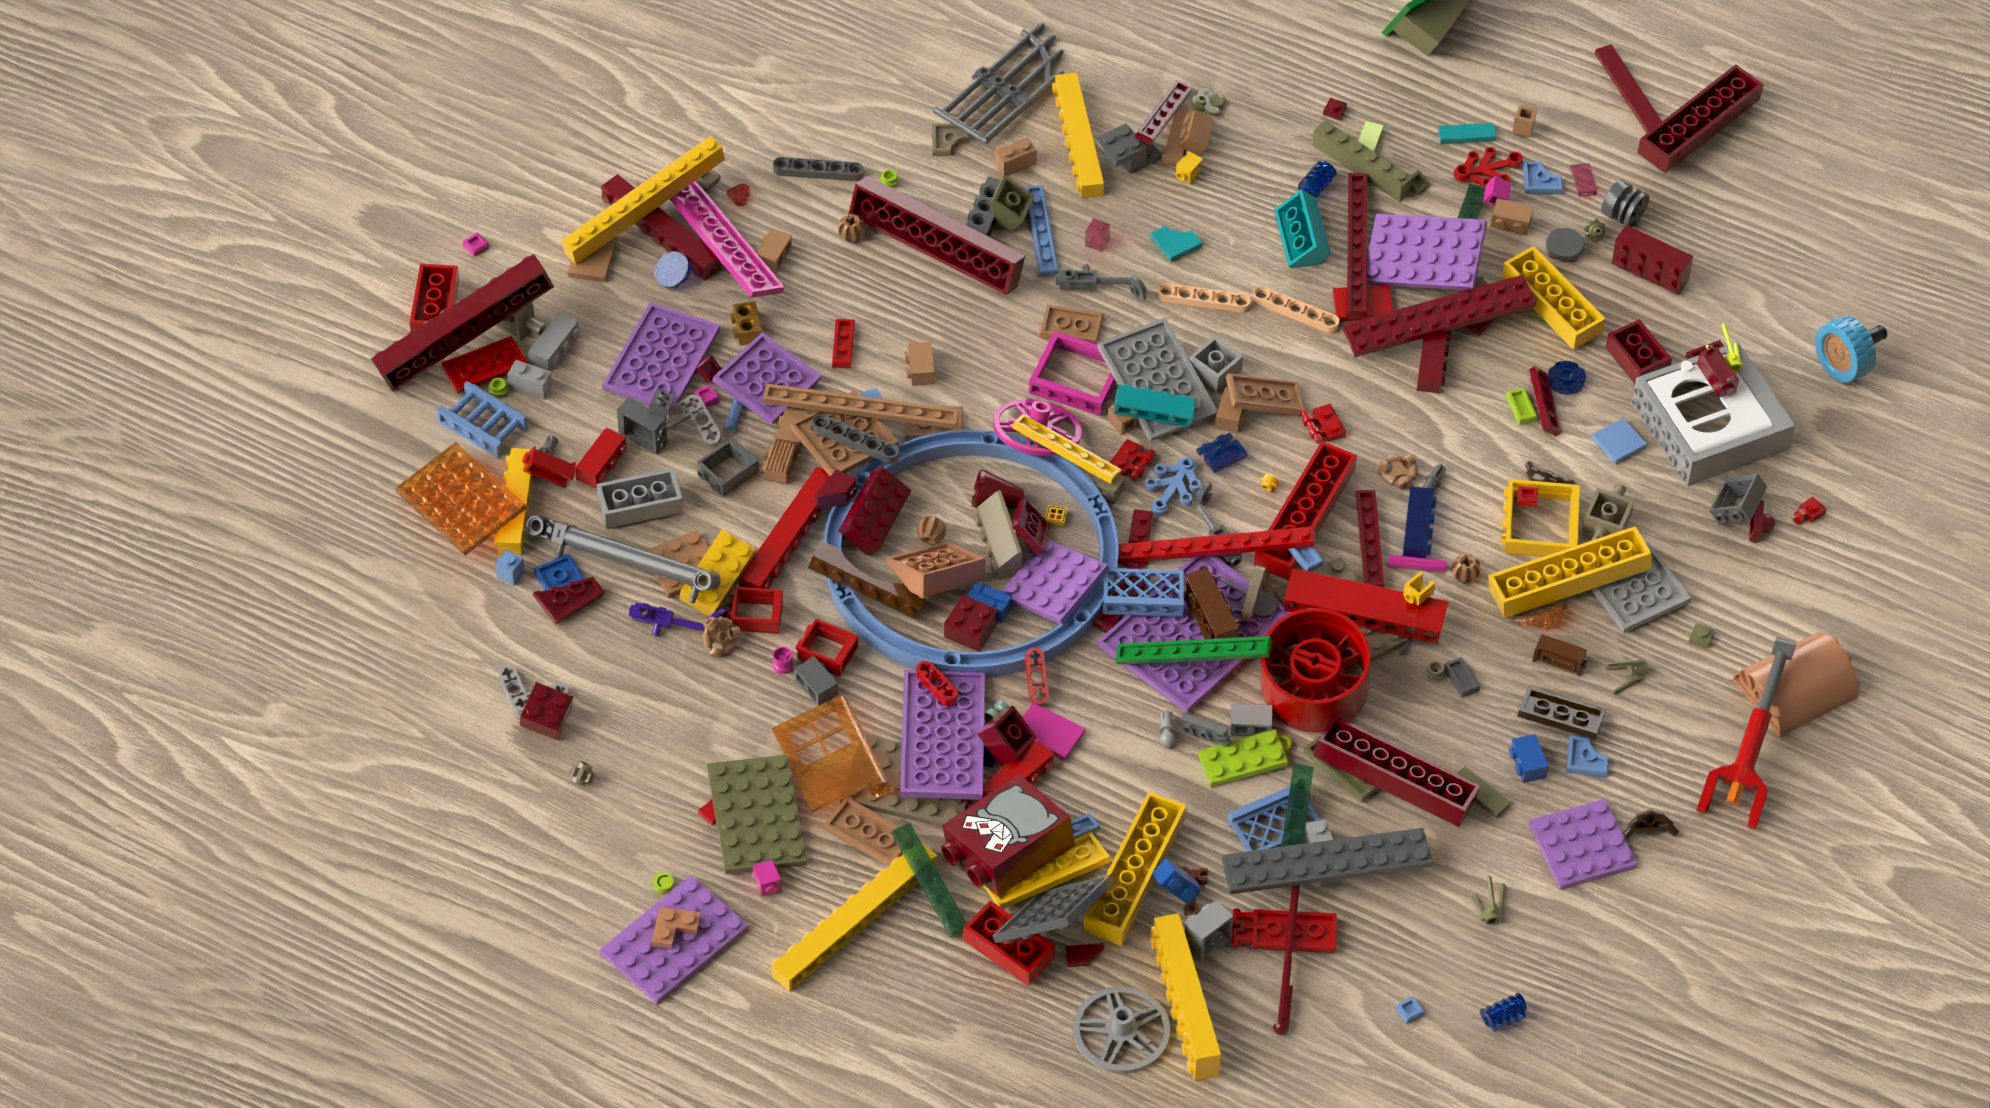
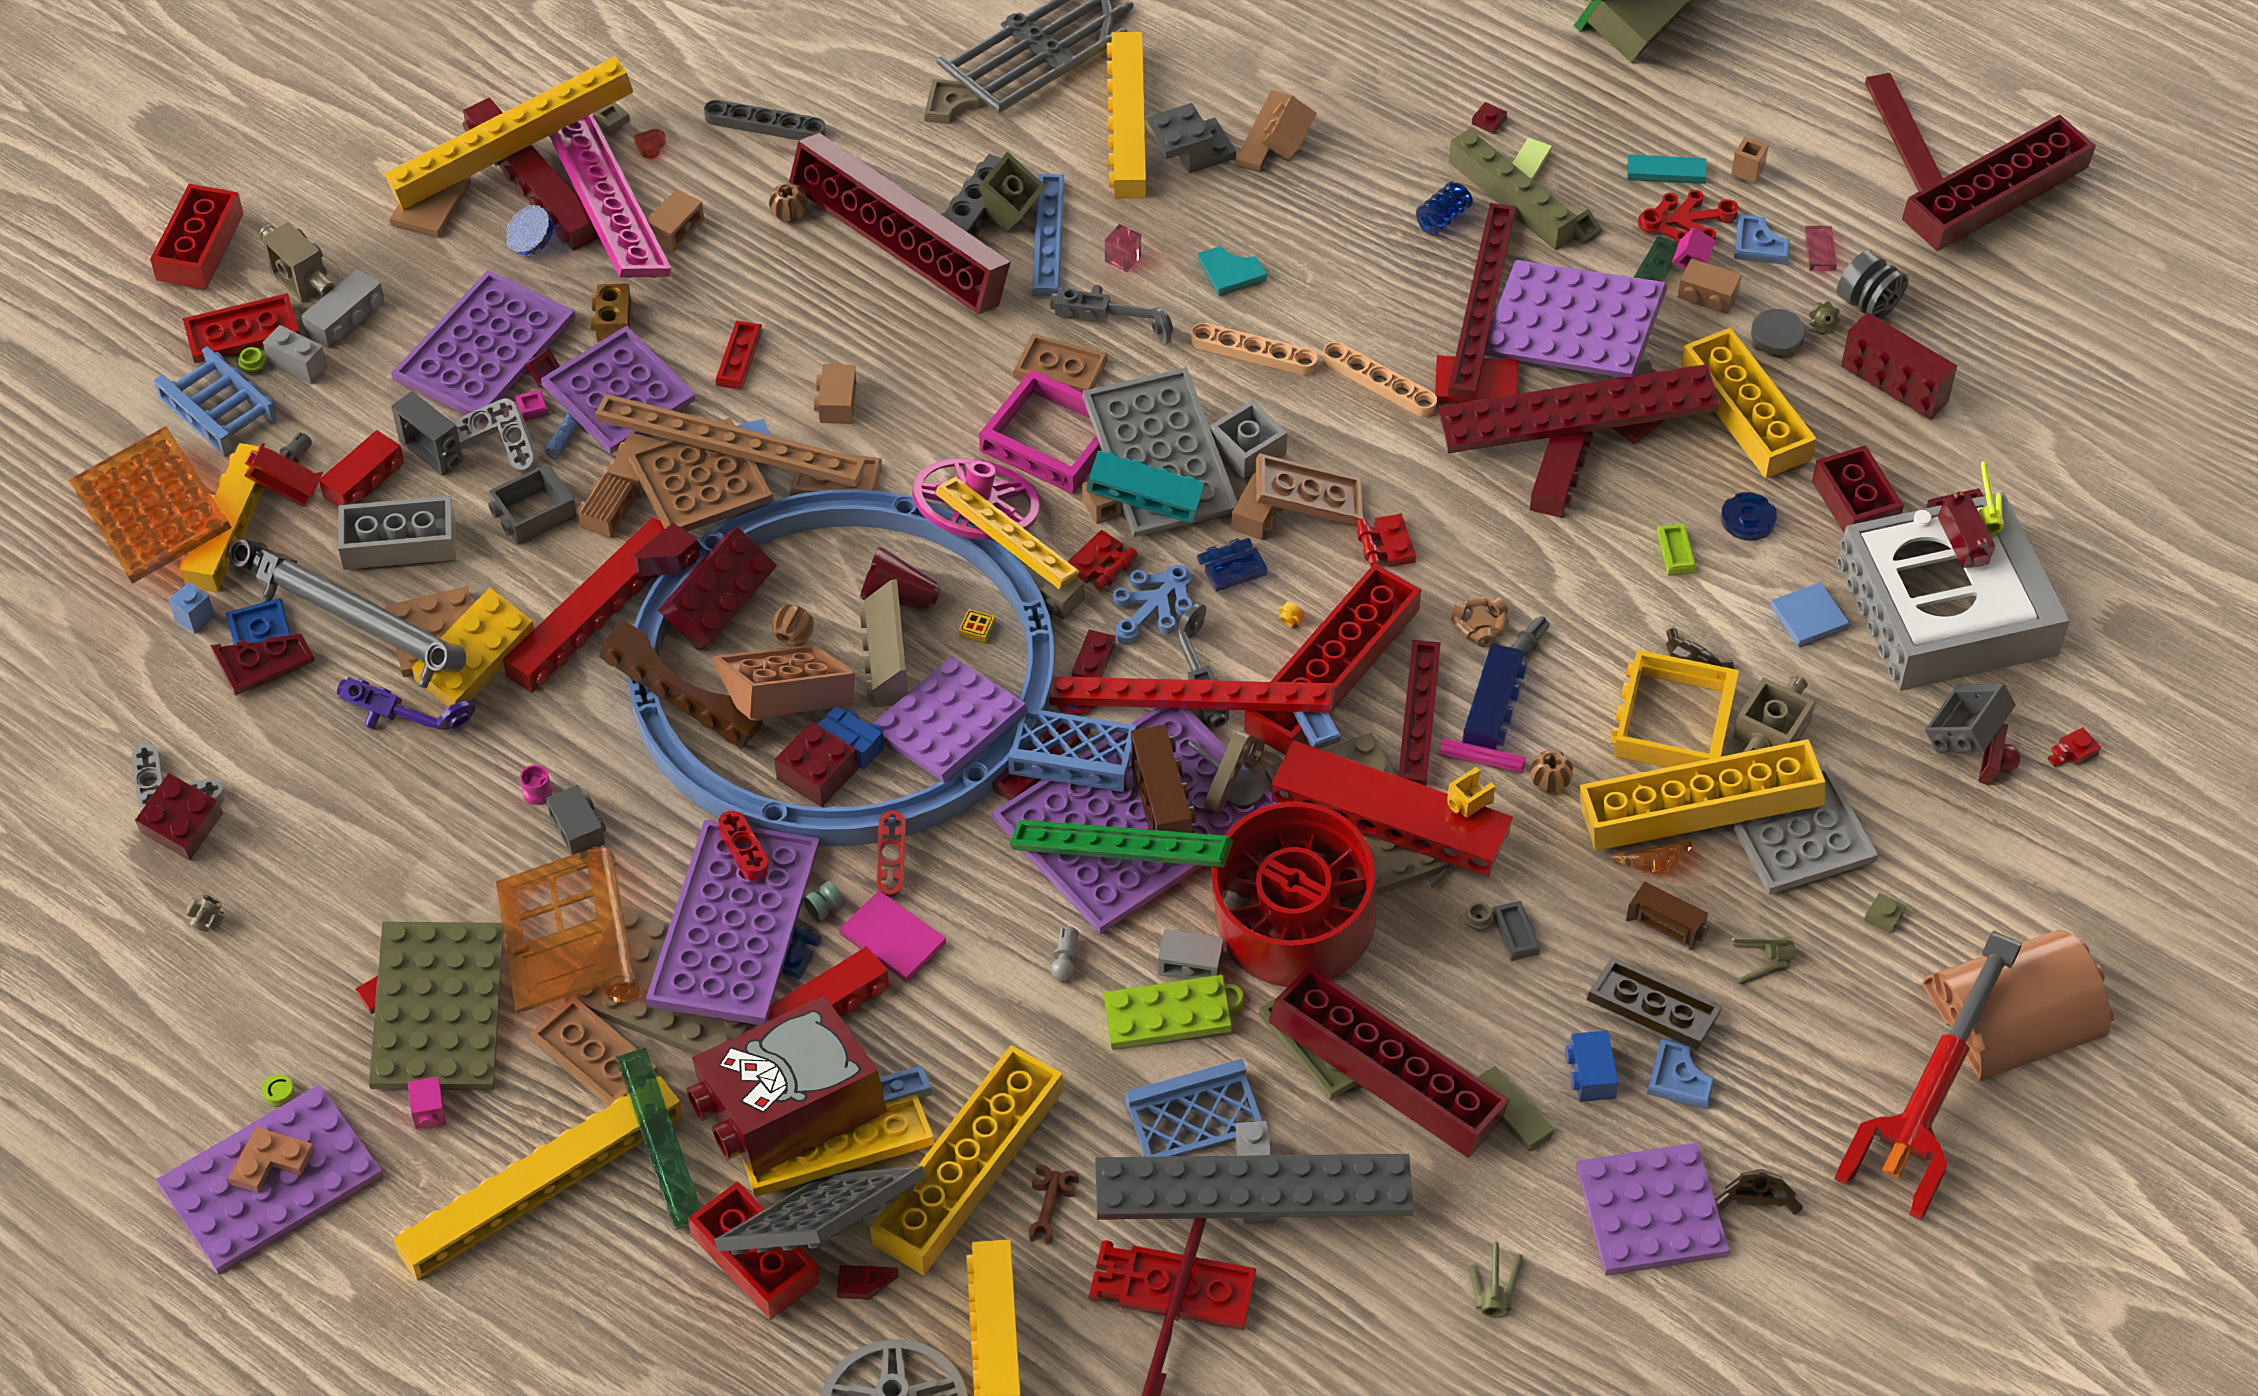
camera: 10 degrees right, 0 degrees up
(462, 322) = (213, 265): dark red brick -> none
(475, 244) = (279, 169): dark pink tile -> none
(661, 402) = (458, 403): dark grey hinge -> none
(720, 635) = (455, 738): medium nougat piece -> none
(757, 596) = (523, 688): red window -> none
(832, 633) = (625, 788): red window -> none
(849, 432) = (717, 494): dark grey beam -> none
(889, 178) = (857, 143): lime plate -> none
(1007, 735) = (824, 935): dark red brick -> none
(1015, 157) = (1034, 133): medium nougat brick -> none
(1031, 526) = (931, 635): dark red plate -> none
(1163, 112) = (1248, 95): tile -> none
(1177, 881) = (1023, 1188): blue brick -> none
(1187, 168) = (1268, 173): yellow window -> none
(1206, 730) = (1118, 963): dark grey hinge -> none
(1208, 101) = (1316, 90): olive plate -> none
(1208, 929) = (1054, 1269): light grey brick -> none
(1297, 805) = (1229, 1095): clear green tile -> none
(1302, 230) = (1410, 273): teal slope -> none
(1527, 496) = (1659, 678): red tile -> none
(1545, 401) = (1710, 545): dark red plate -> none
(1848, 348) = (2164, 519): dark azure wheel -> none

